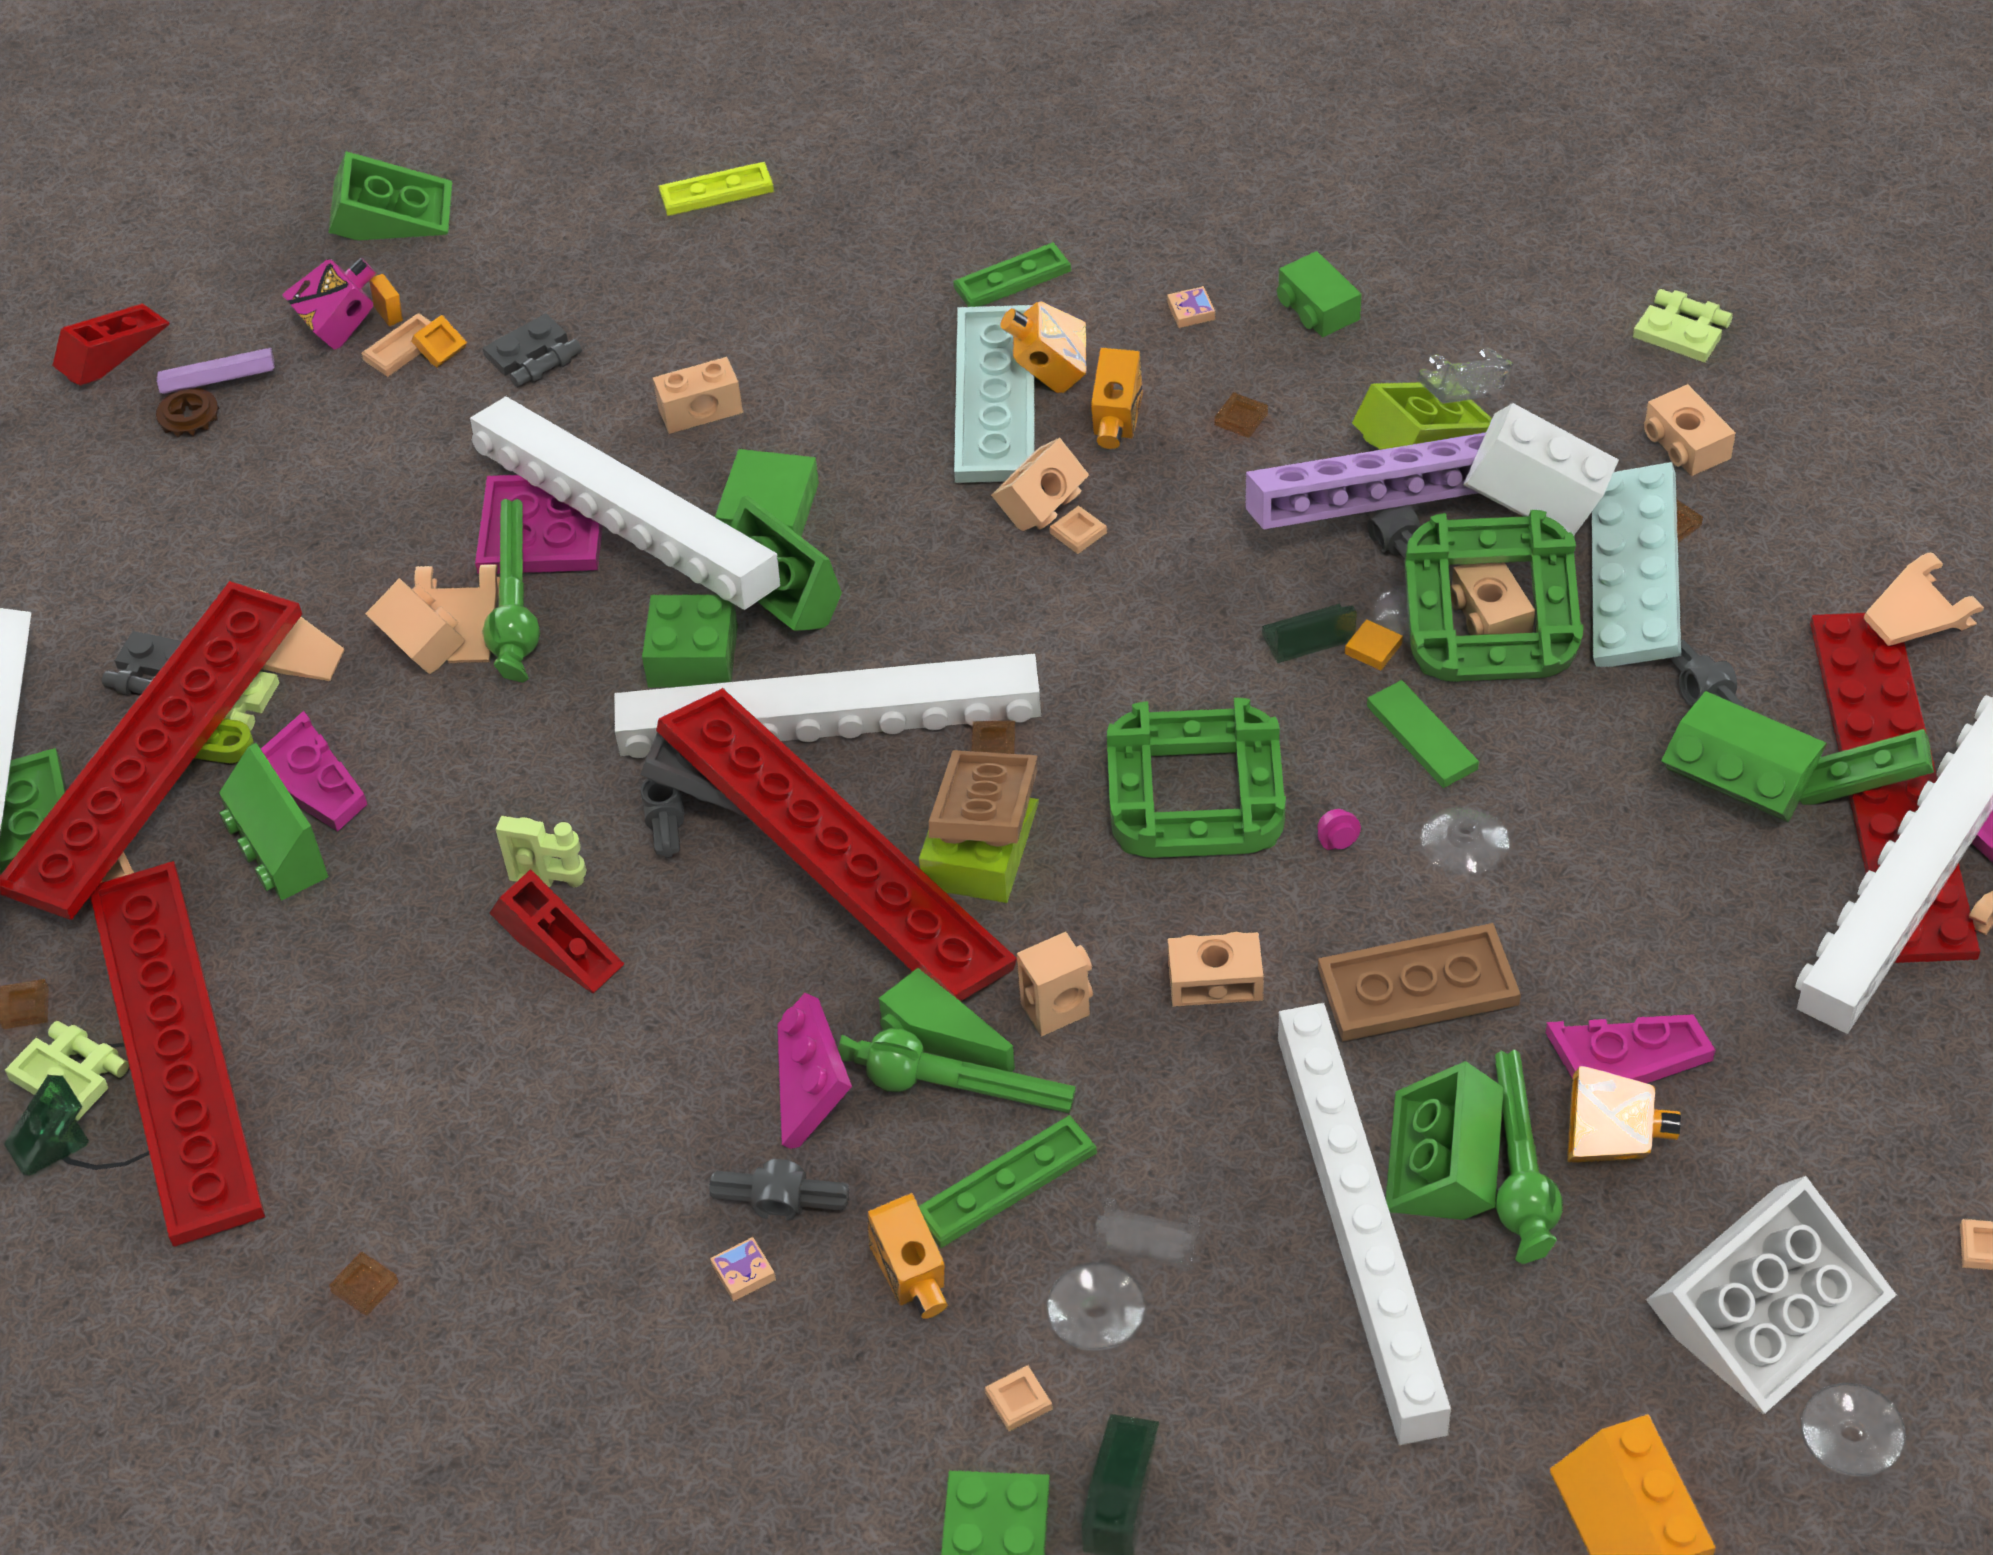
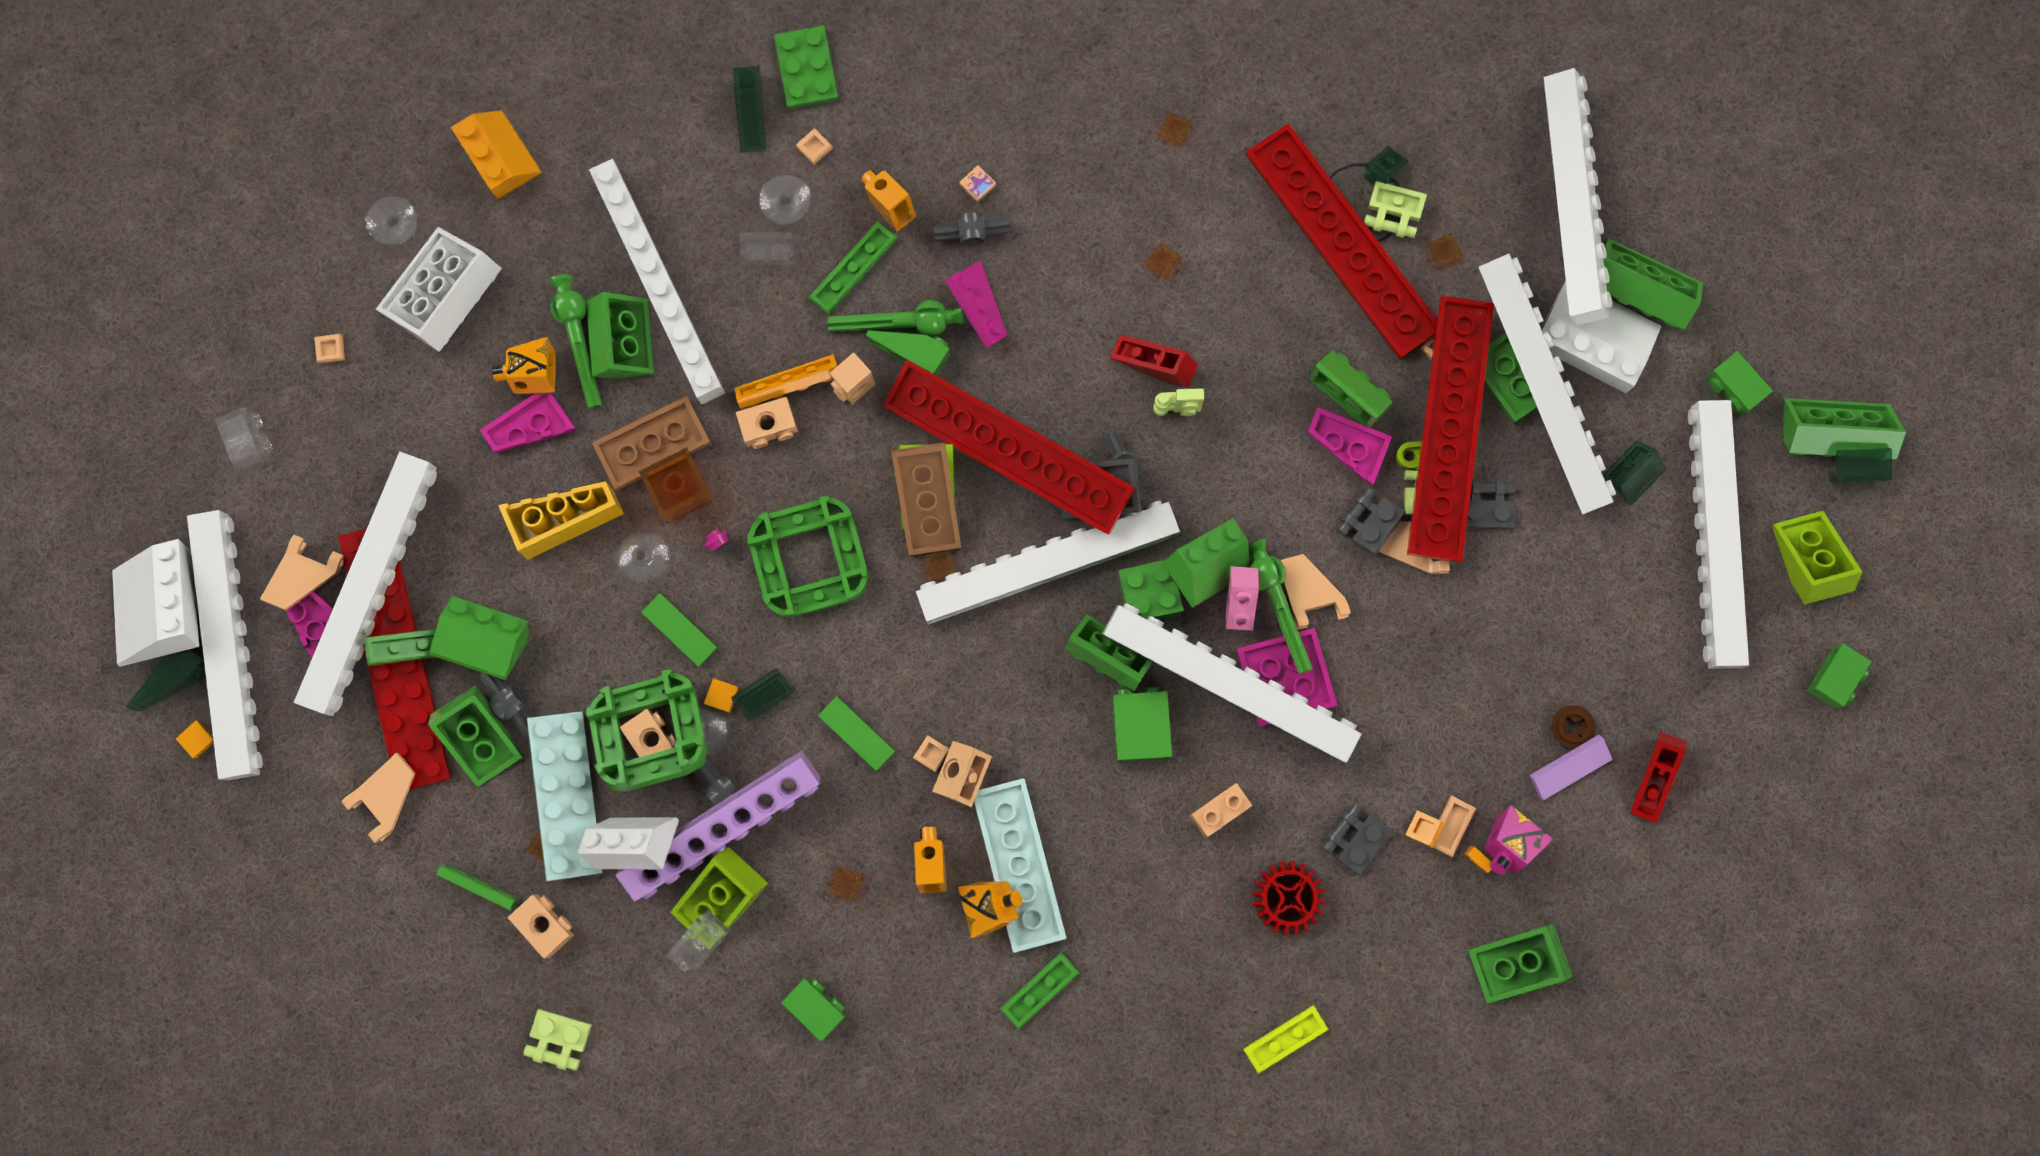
camera: 165 degrees right, 30 degrees up
(323, 666) = (1377, 527): none -> dark grey plate
(415, 627) = (1330, 564): light nougat brick -> none
(478, 1081) = (1163, 261): none -> clear orange tile
(561, 593) = (1242, 598): none -> bright pink brick
(590, 652) = (1205, 563): none -> bright green slope
(649, 303) = (1307, 914): none -> red gear
(1167, 1022) = (790, 380): none -> light orange plate
(1181, 568) = (856, 733): none -> bright green tile
(1191, 307) = (904, 984): light nougat tile -> none
(1385, 896) = (676, 485): none -> clear orange brick
(1591, 895) = (555, 519): none -> yellow wedge
(1771, 656) = (475, 736): none -> bright green slope
(1778, 484) = (478, 887): none -> bright green tile

